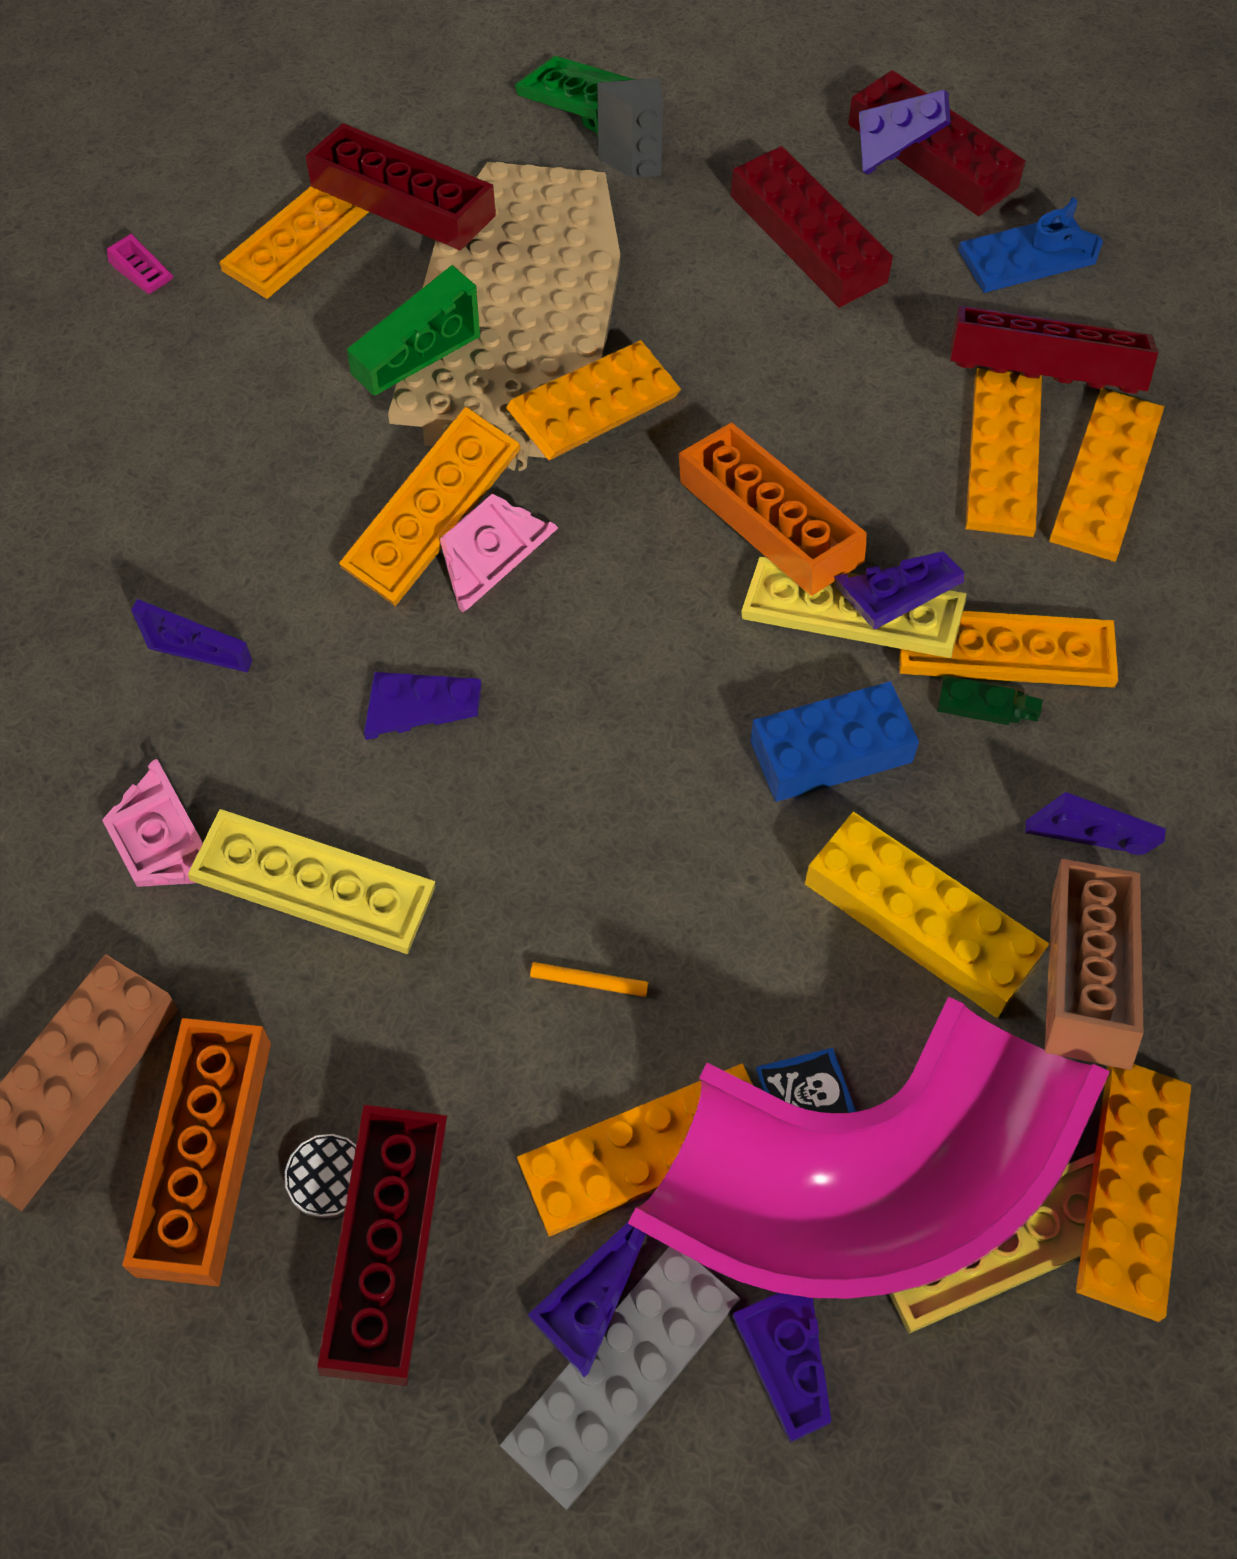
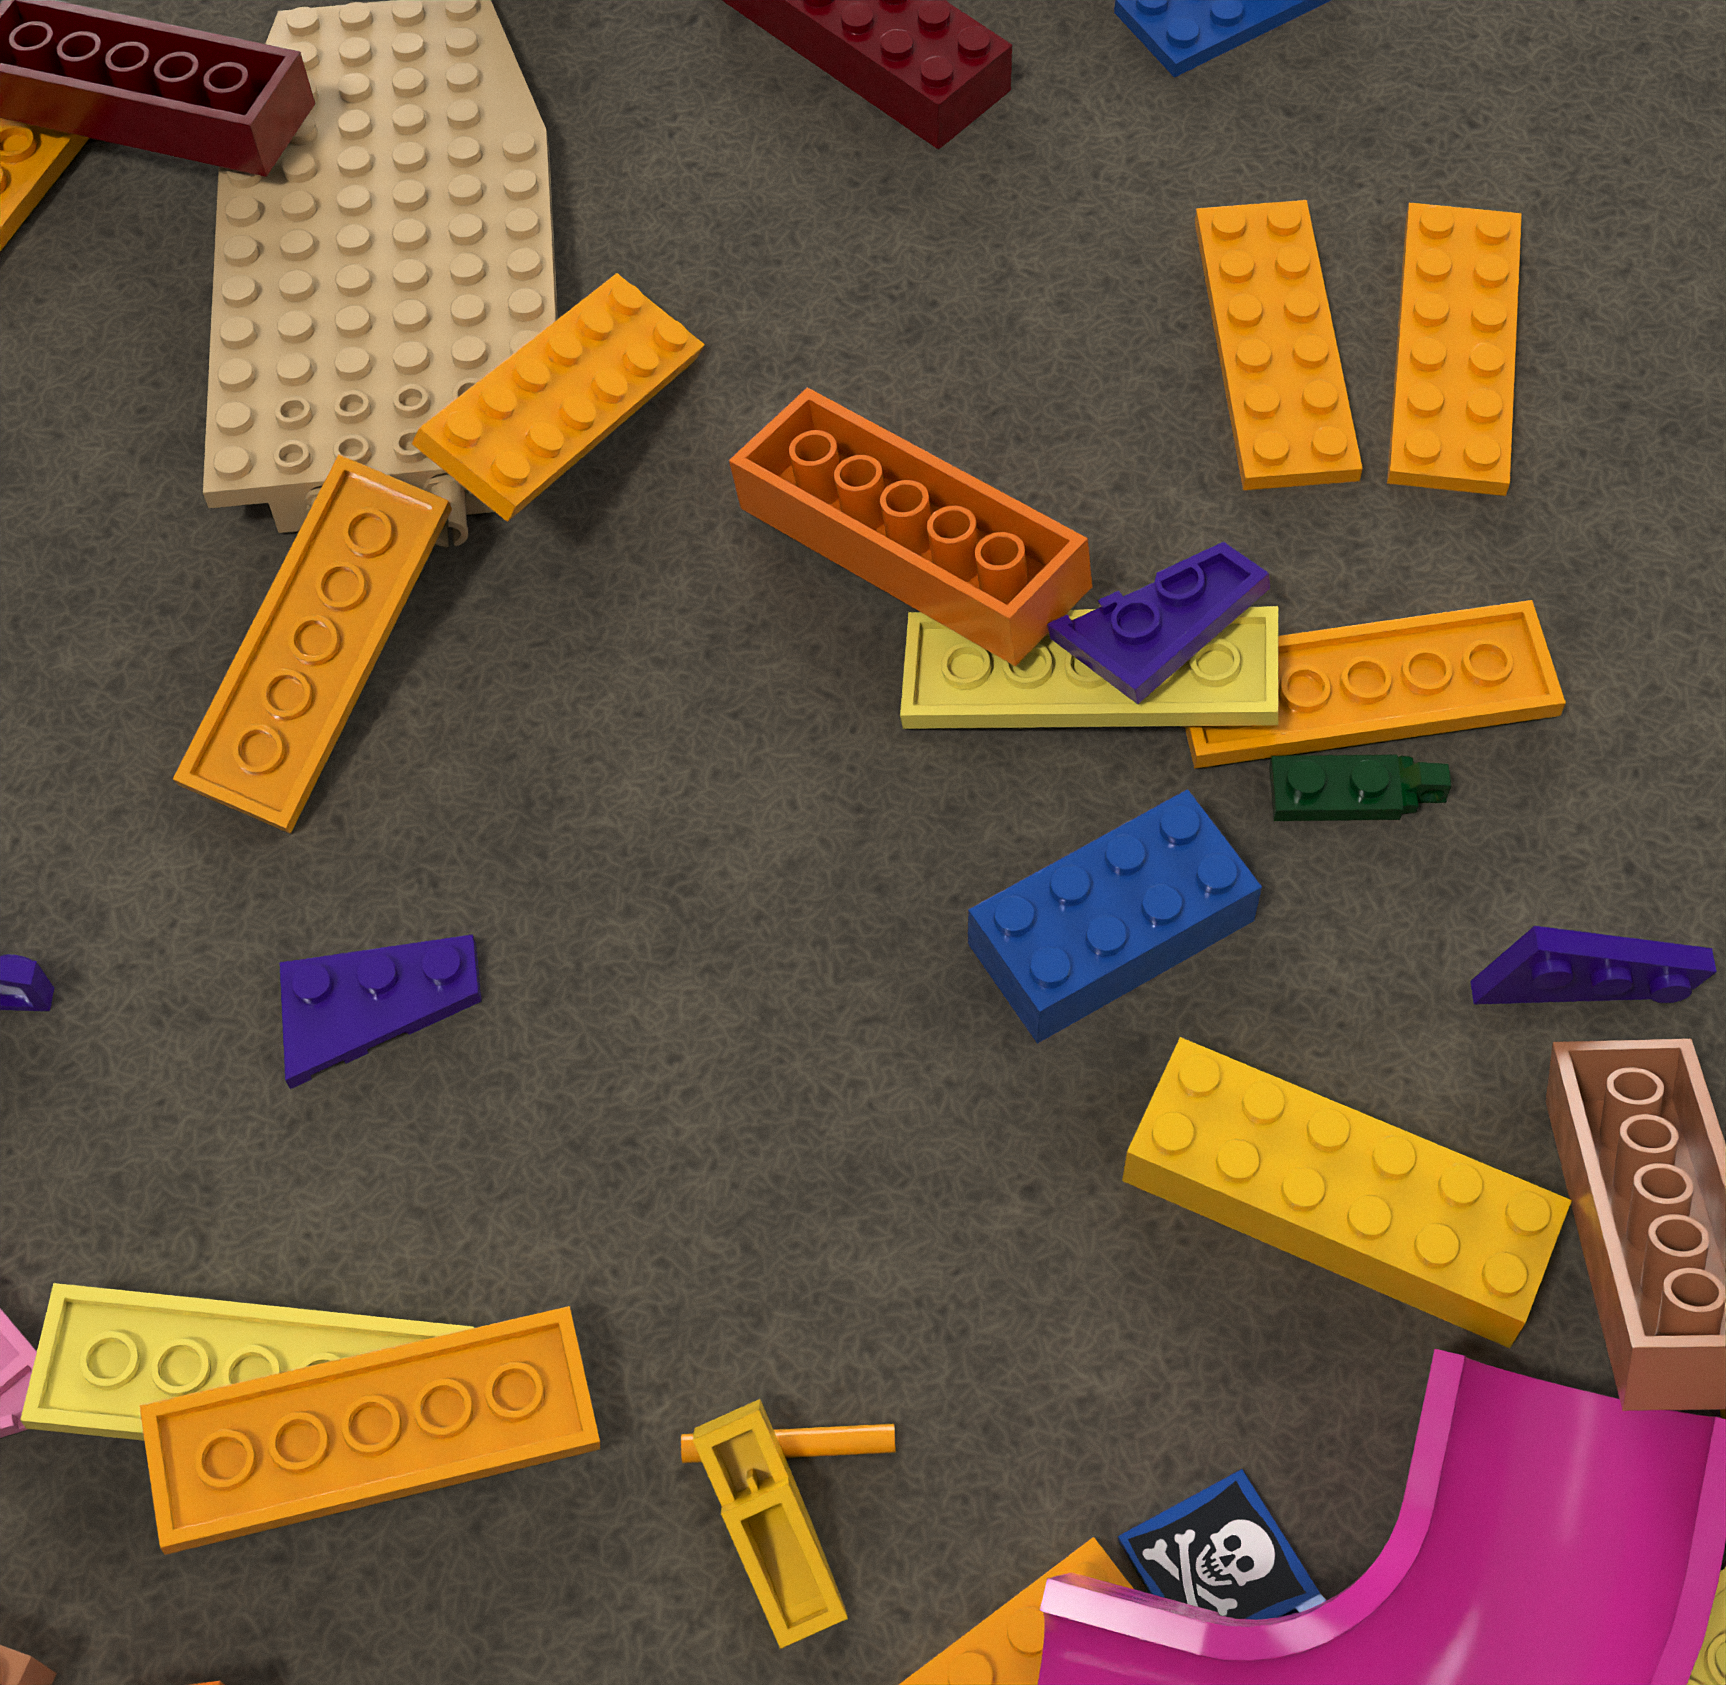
camera: 10 degrees left, 0 degrees up
(368, 919) = (366, 1429): none -> light orange plate
(417, 333) = (224, 339): green wedge -> none
(489, 546) = (434, 693): bright pink wing -> none
(569, 1016) = (769, 1523): none -> yellow slope
(1053, 349) = (1317, 153): dark red brick -> none

